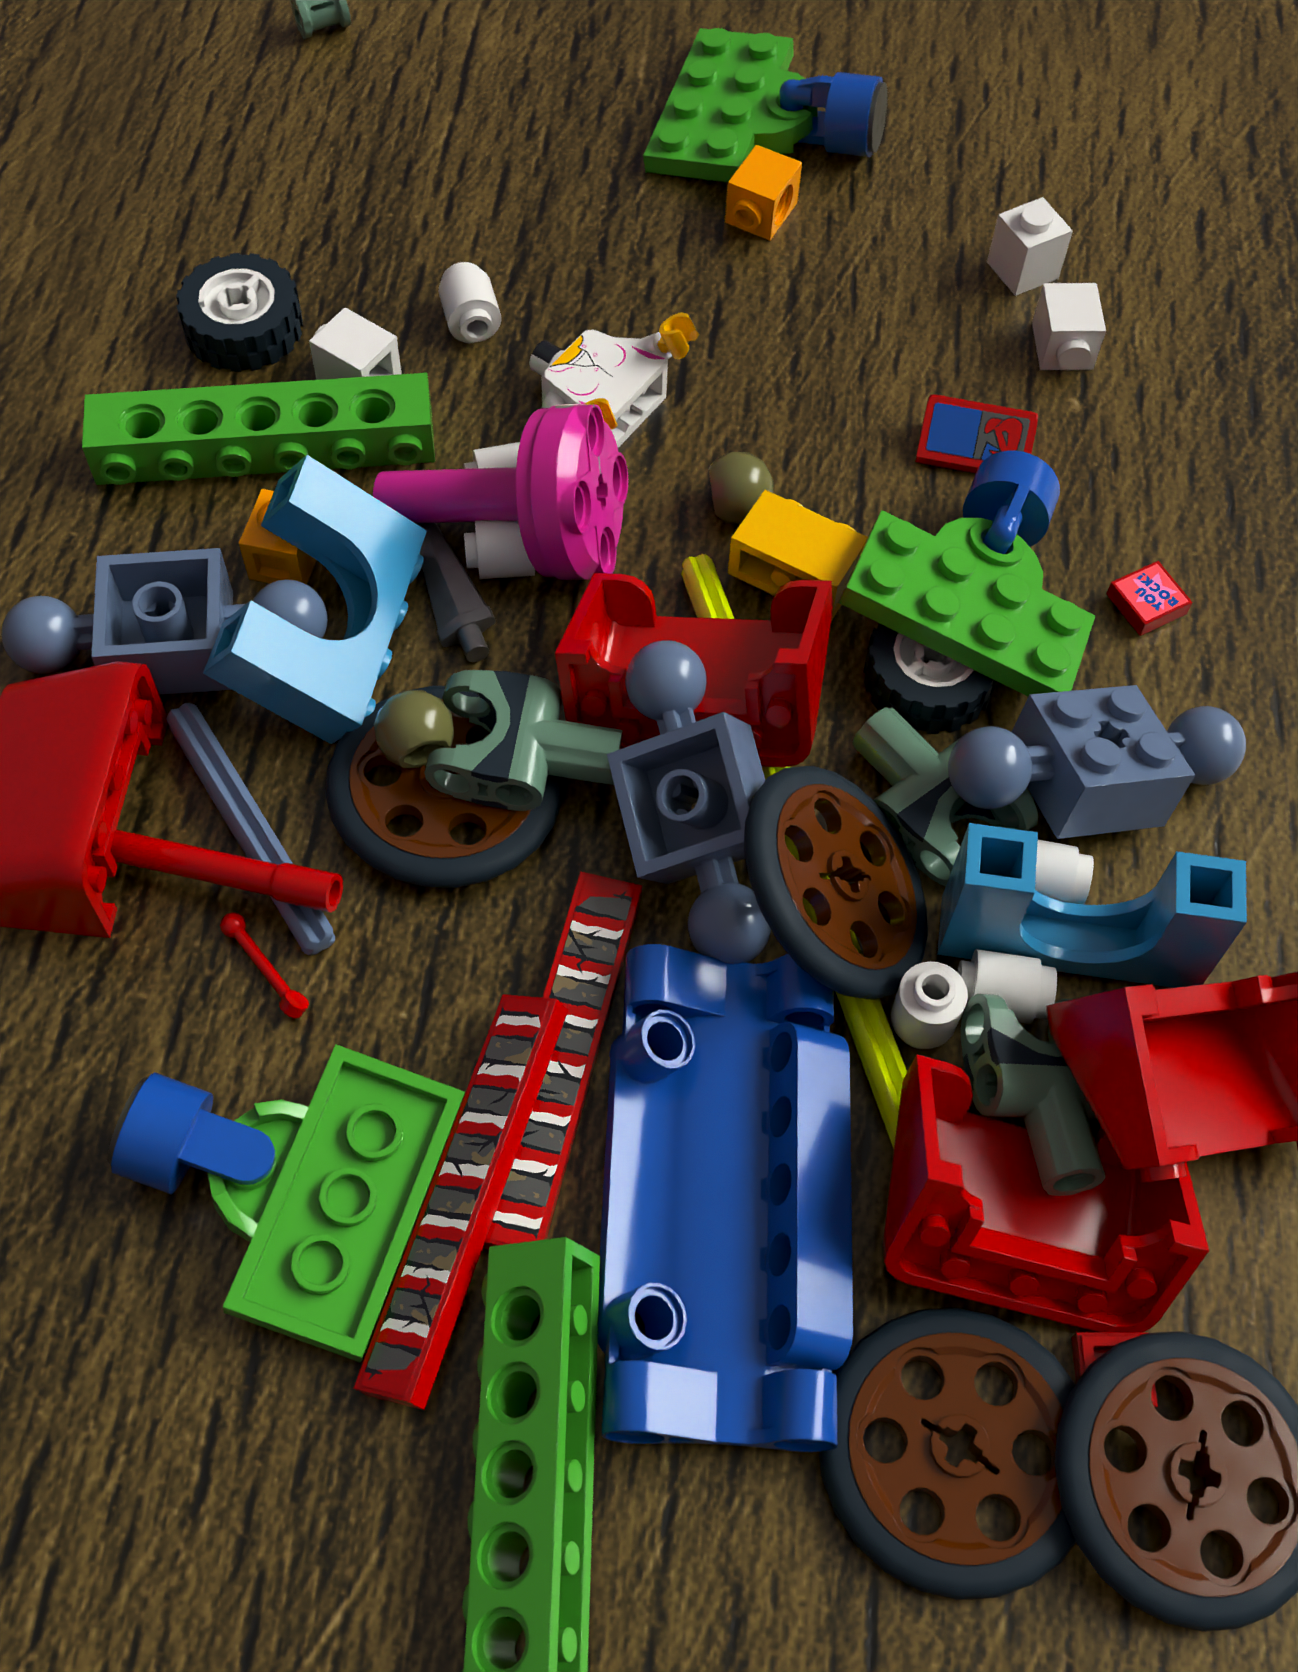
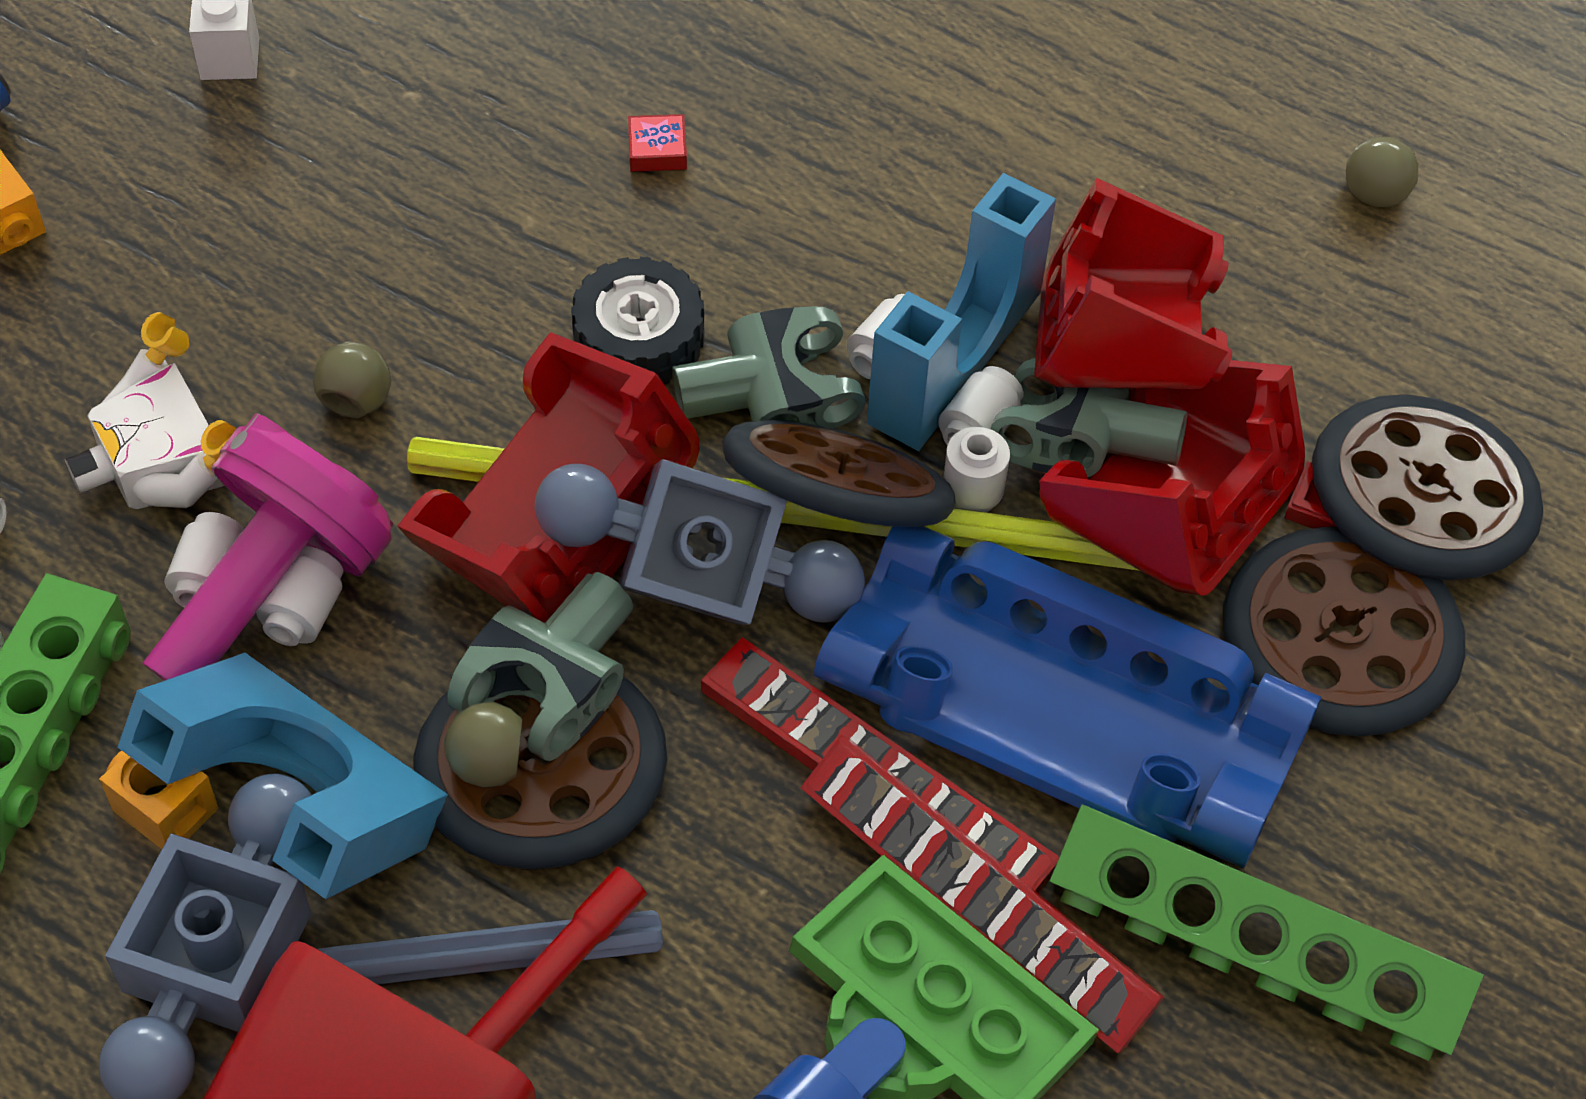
camera: 65 degrees left, 5 degrees down
(291, 1002) = (594, 1003): red hinge -> none
(455, 601) = (333, 672): flat silver bar -> none
(791, 543) = (464, 363): yellow brick -> none
(966, 432) = (410, 179): slope -> none
(978, 581) = (584, 249): bright green plate -> none
(1068, 326) = (337, 52): white brick -> none
(1096, 759) = (815, 244): sand blue brick -> none

